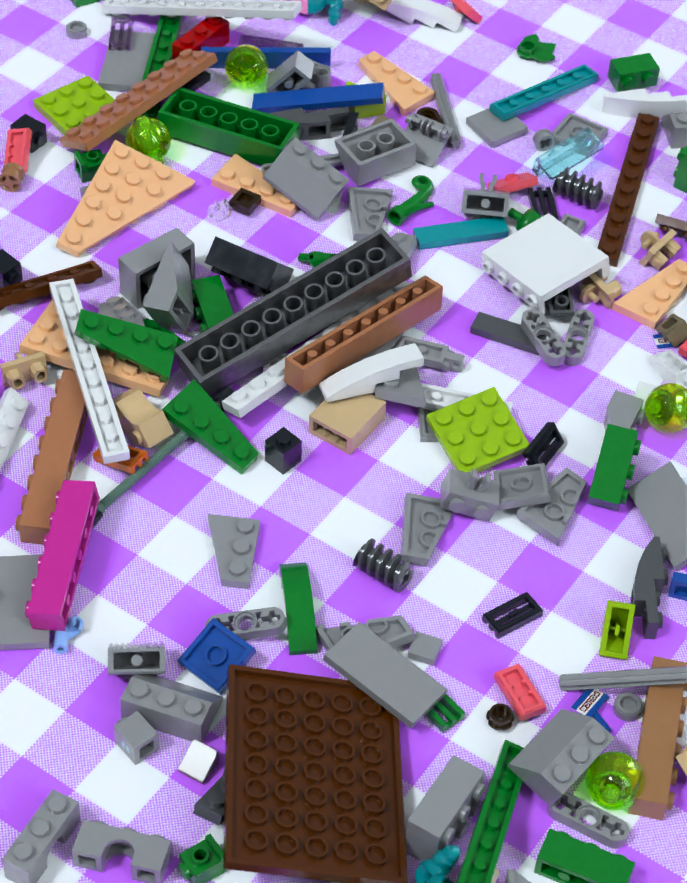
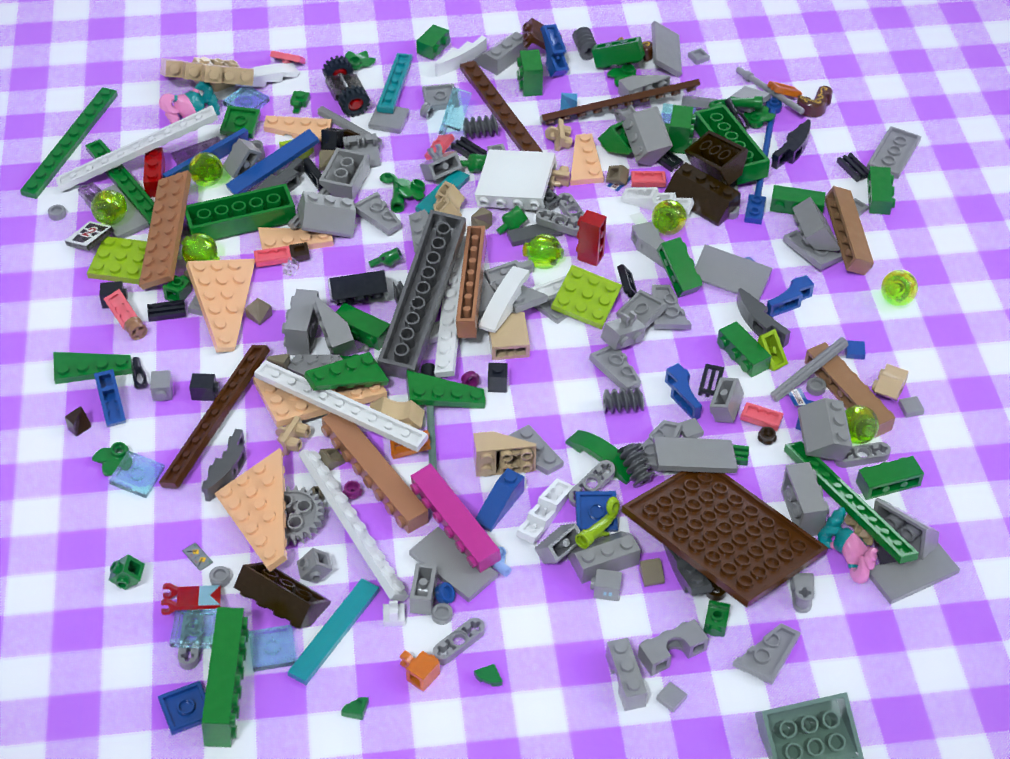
camera: 40 degrees left, 0 degrees up
(16, 461) = (352, 486): none -> magenta plate
(34, 417) = (331, 458): none -> dark tan slope
(63, 179) = (166, 310): none -> black tile
(73, 67) = (89, 236): none -> tile
(94, 294) = (281, 360): none -> dark tan slope
(112, 48) = (109, 207): none -> clear neon green brick
(138, 232) = (258, 311): none -> dark tan slope
(141, 572) = (501, 499): none -> blue slope
(161, 670) = (587, 537): none -> lime plant
(175, 617) = (545, 511): none -> white slope
(182, 526) = (497, 452): none -> tan slope
(213, 188) = (272, 256): none -> coral plate
(253, 436) = (474, 381): none -> magenta plate
(309, 637) = (635, 464): none -> dark grey piece
(342, 39) = (239, 118): none -> green plate
(373, 26) = (247, 98): none -> clear light blue tile
(402, 106) = (331, 138): none -> black brick
(426, 54) = (298, 100): none -> green plate
(429, 206) = (411, 188): none -> green plate
(441, 247) = (448, 199): none -> tan brick
(463, 284) = (482, 218): none -> dark tan slope
(464, 598) = (678, 380): none -> blue slope
(483, 65) = (345, 86): none -> plate
(488, 356) = (543, 251): none -> clear neon green brick
(494, 644) = (726, 400): none -> light grey brick
(496, 303) = (512, 220): none -> green piece
(546, 371) = (591, 237): none -> red brick
(586, 606) = (743, 349): none -> green brick

